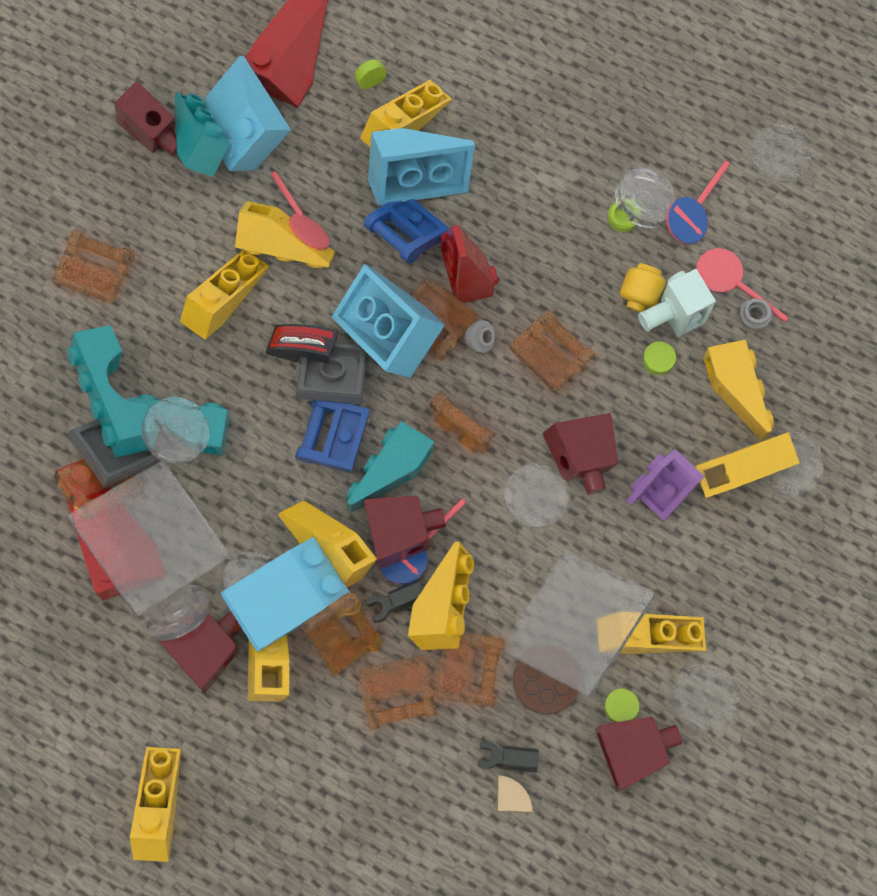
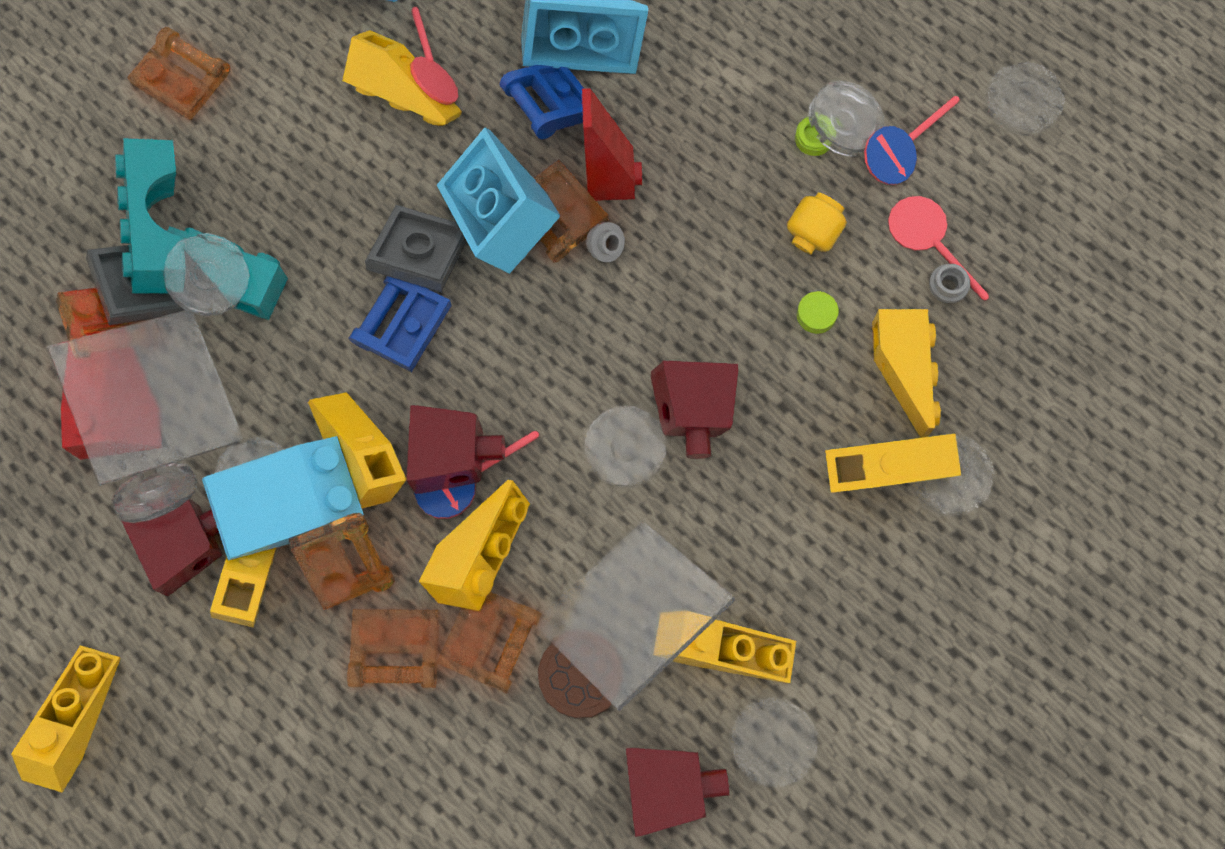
camera: 20 degrees right, 0 degrees up
(221, 294) = (310, 133): yellow slope -> none
(297, 340) = (393, 204): slope -> none
(396, 601) = (422, 536): pearl dark grey bar -> none
(397, 463) = (463, 372): teal slope -> none
(449, 418) = (541, 330): clear orange plate -> none
(511, 758) = (512, 762): pearl dark grey bar -> none
(512, 796) = (501, 811): tan tile -> none
(545, 357) = (678, 284): clear orange plate -> none
(621, 705) = (666, 728): lime tile -> none
(667, 484) = (785, 464): medium lavender bracket -> none
(683, 304) = (861, 251): light aqua brick -> none

